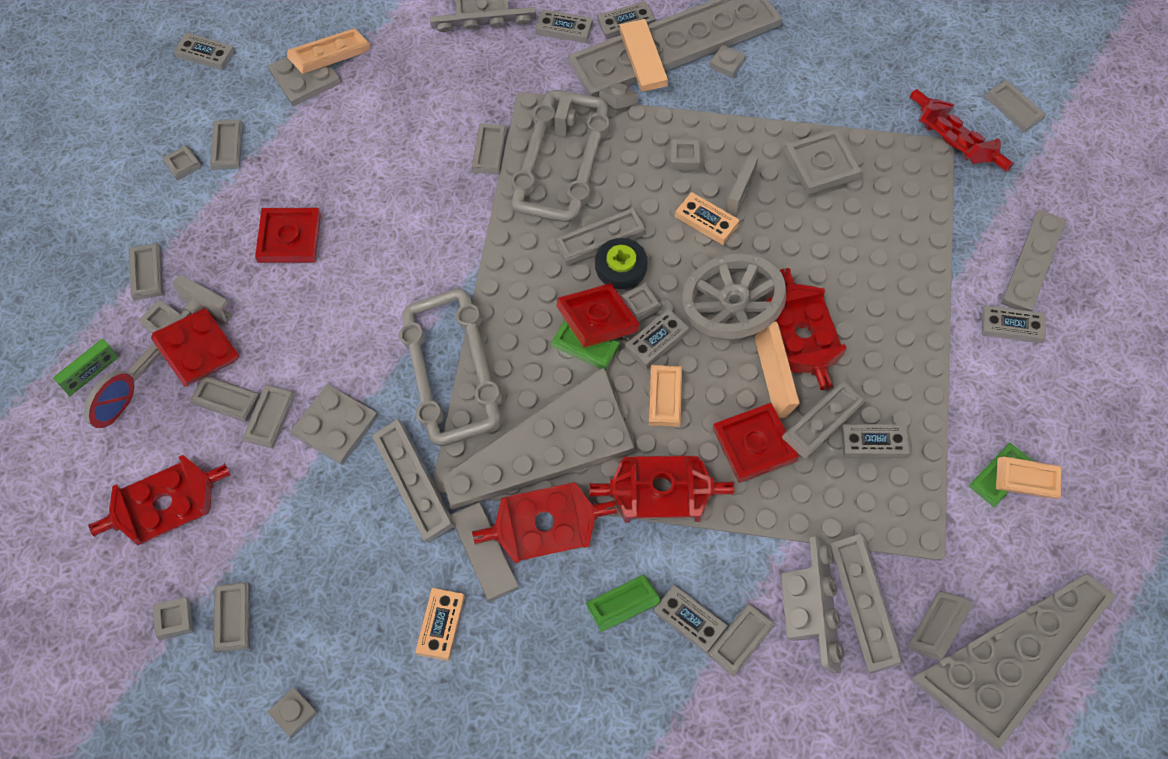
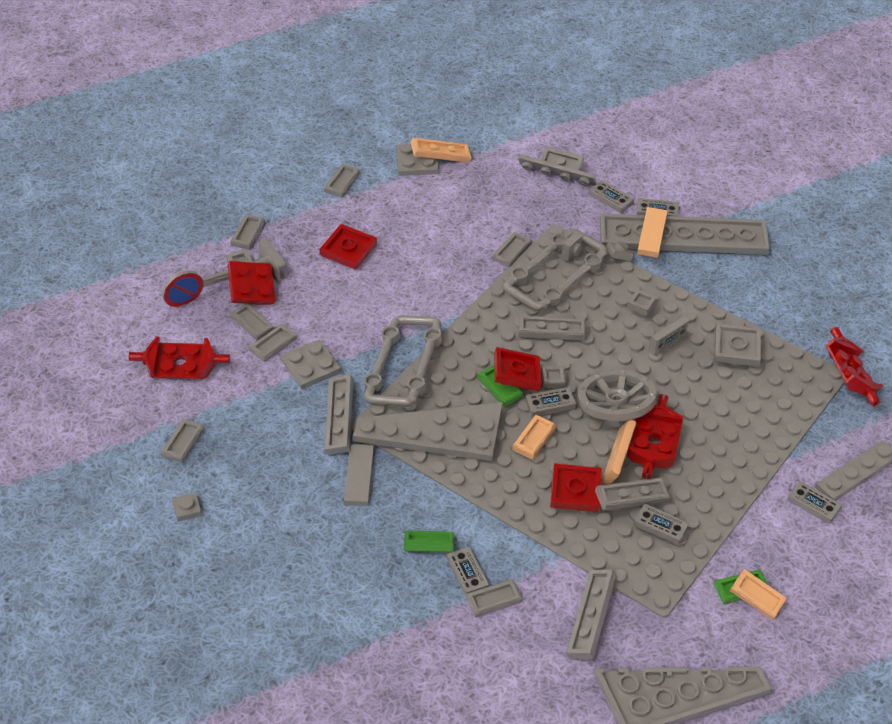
camera: 25 degrees right, 15 degrees down
(86, 367) = (172, 267): bright green tile -> none
(172, 618) = (147, 424): light grey plate -> none
(182, 162) = (307, 180): light grey tile -> none
(204, 51) = (361, 122): light grey tile -> none
(440, 624) = (306, 501): light nougat tile -> none
(571, 528) = (392, 460): red plate -> none
(612, 269) = (554, 347): black wheel -> none
(637, 497) = (511, 496): red plate -> none
(707, 218) = (632, 347): light nougat tile -> none
(727, 61) = (713, 261): light grey plate -> none
(811, 605) = (555, 599): light grey bracket -> none
(940, 625) = (634, 649): light grey tile -> none

